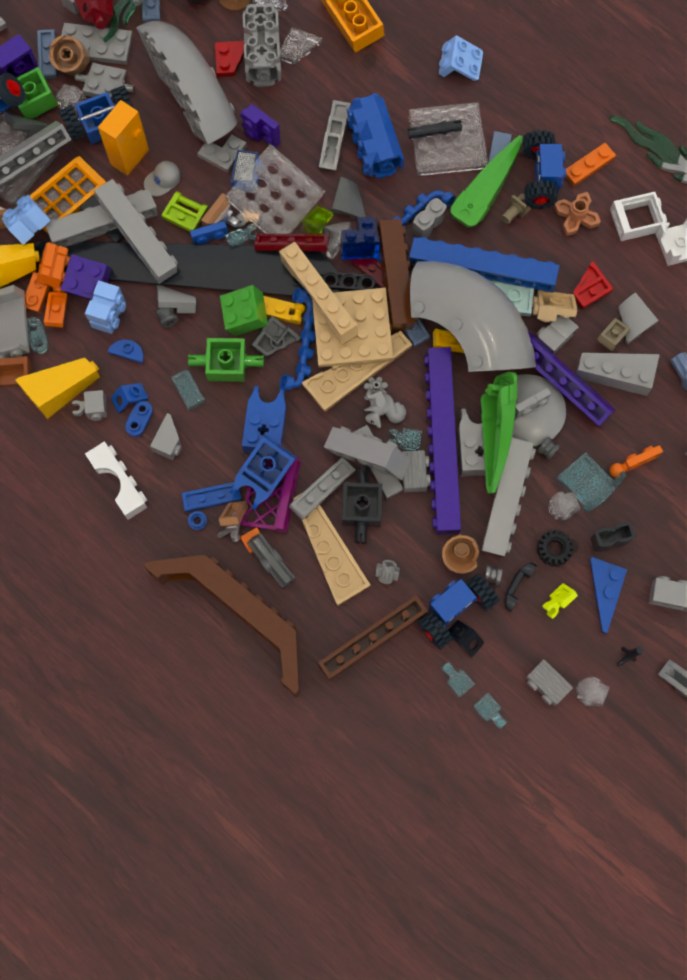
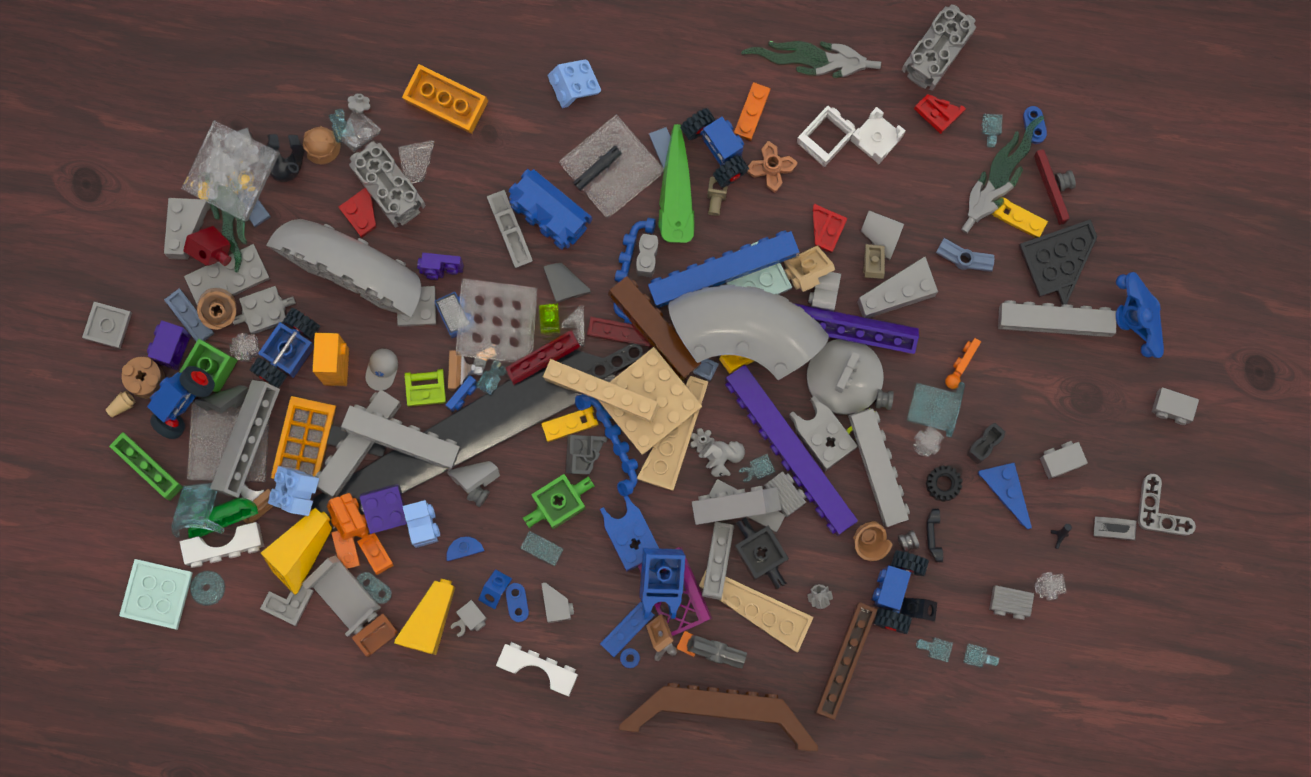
camera: 35 degrees left, 5 degrees up
(244, 310) = (543, 447): bright green brick -> none
(362, 242) = (605, 315): clear blue brick -> none
(497, 425) = (833, 412): bright green piece -> none
(560, 597) = (976, 522): neon yellow plate -> none

